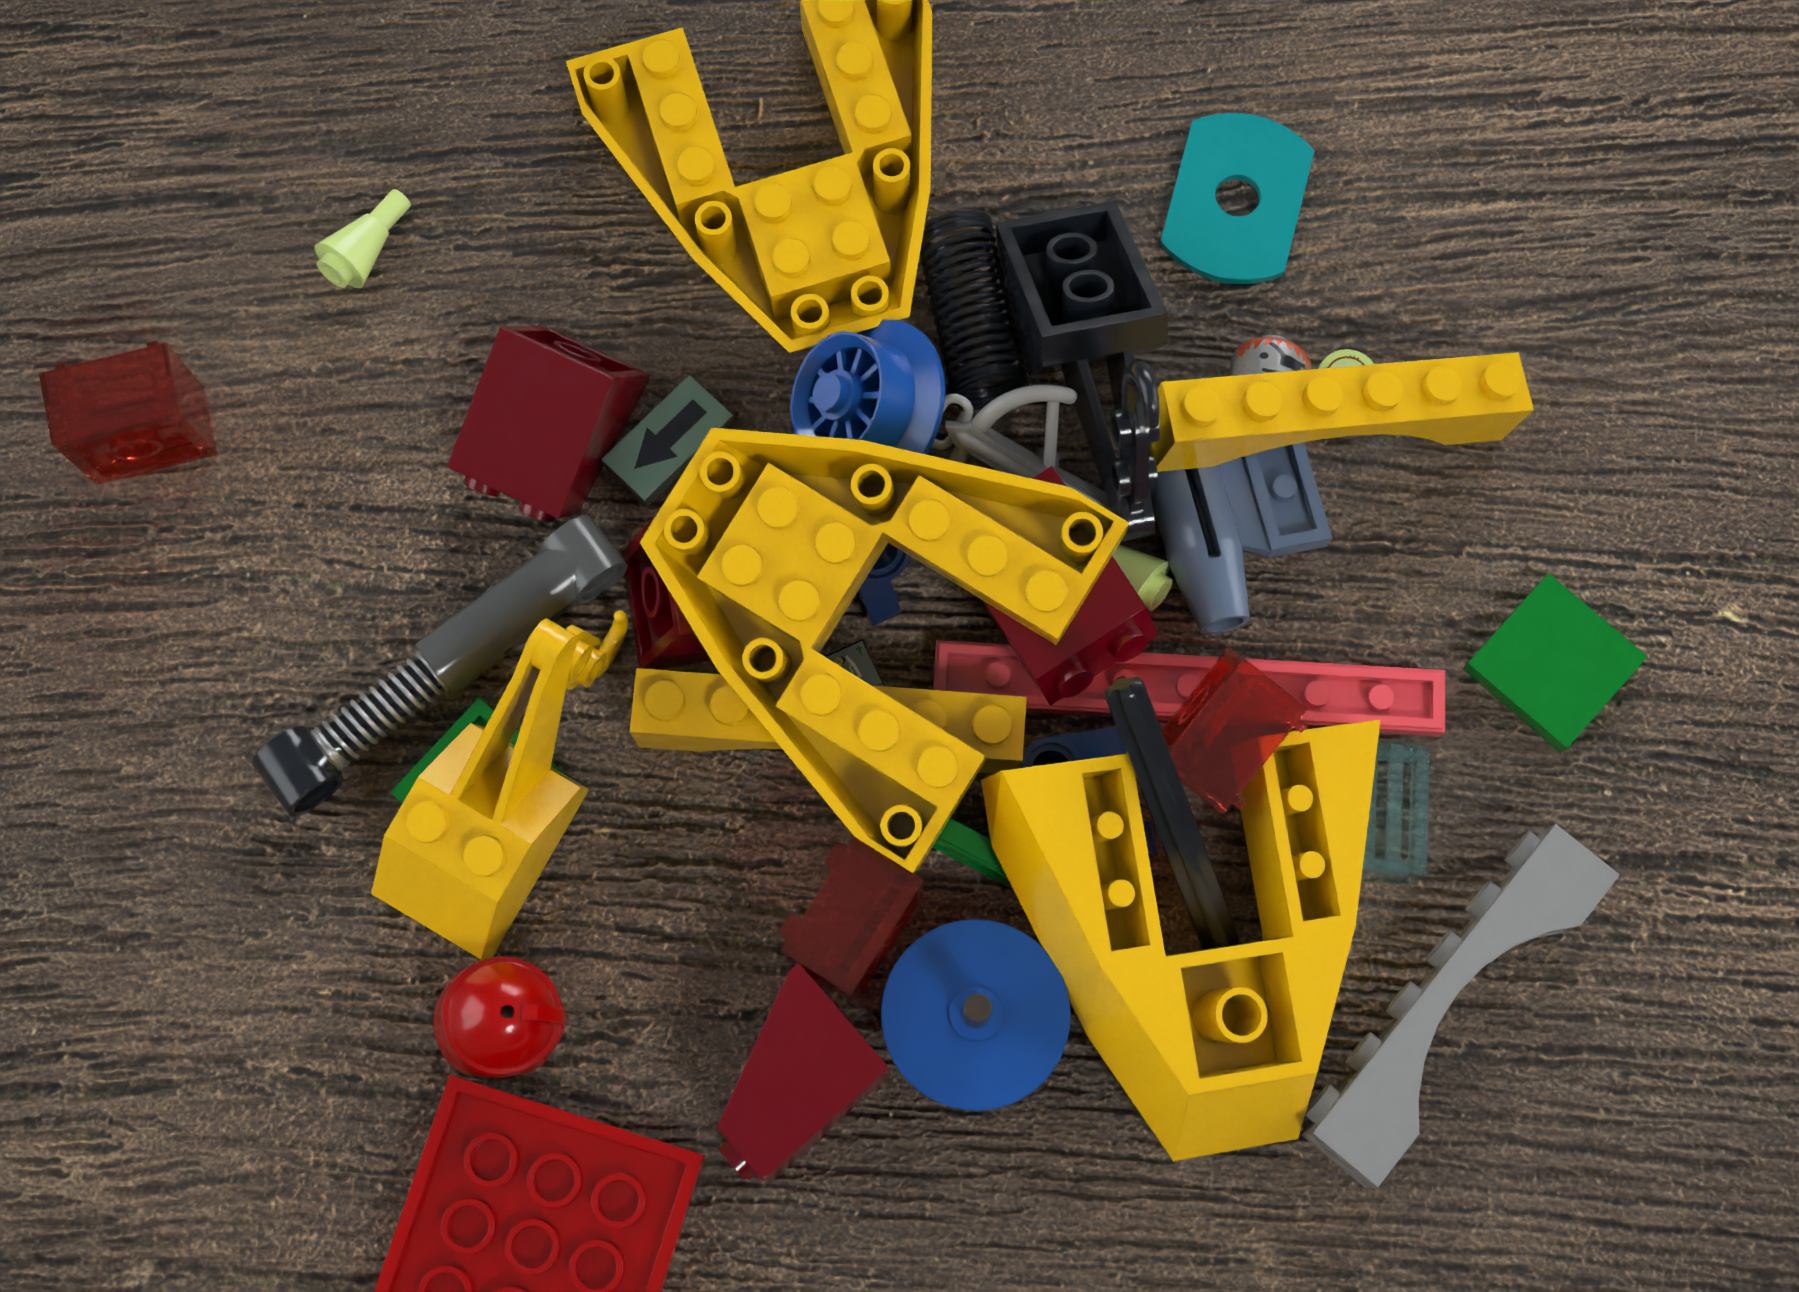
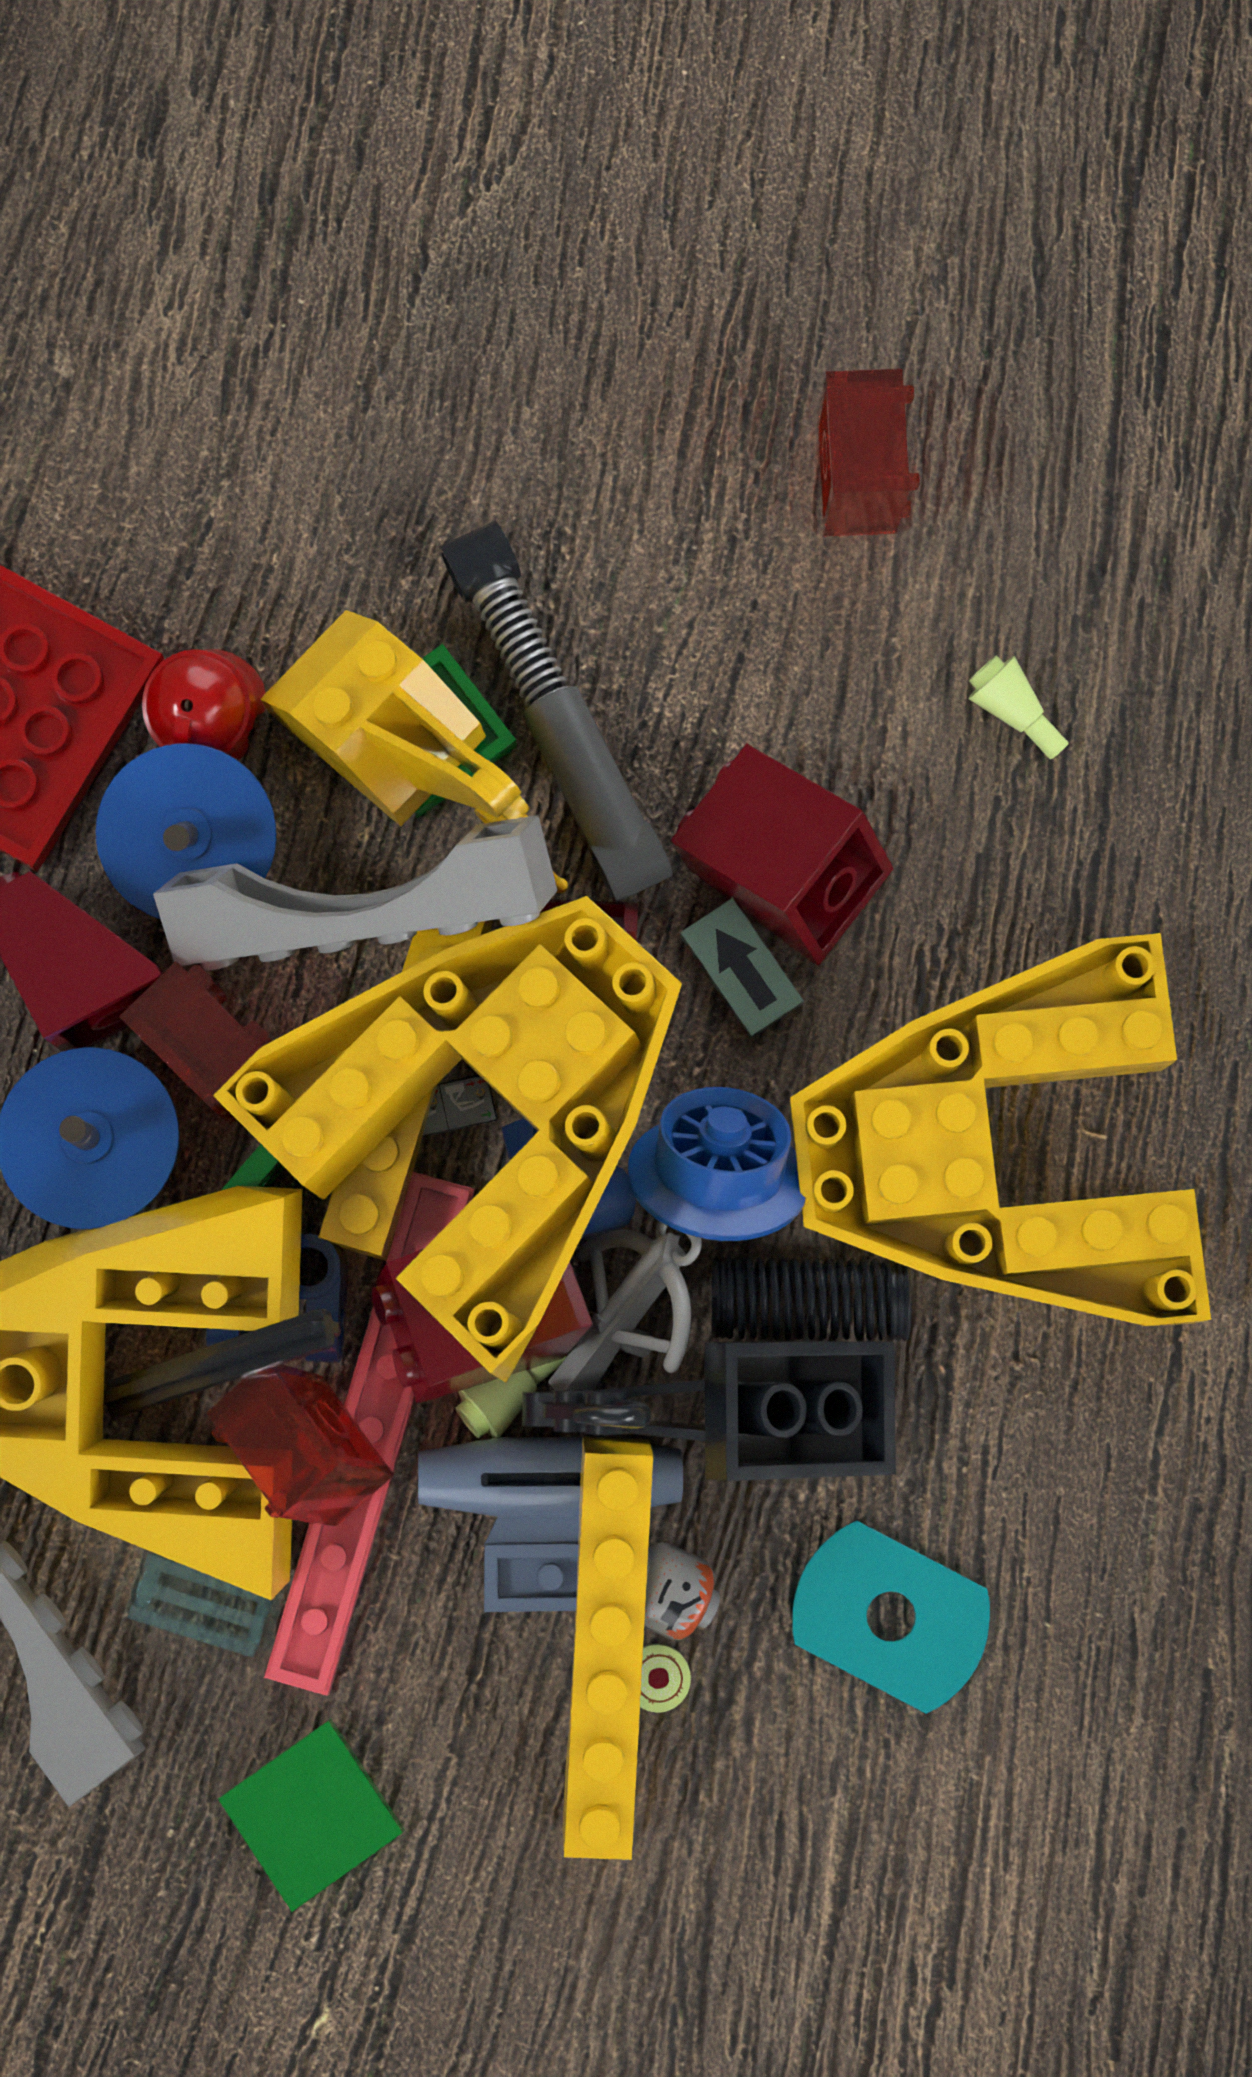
camera: 100 degrees right, 5 degrees up
(640, 990) = (181, 814): none -> blue piece
(719, 908) = (234, 913): none -> light grey arch

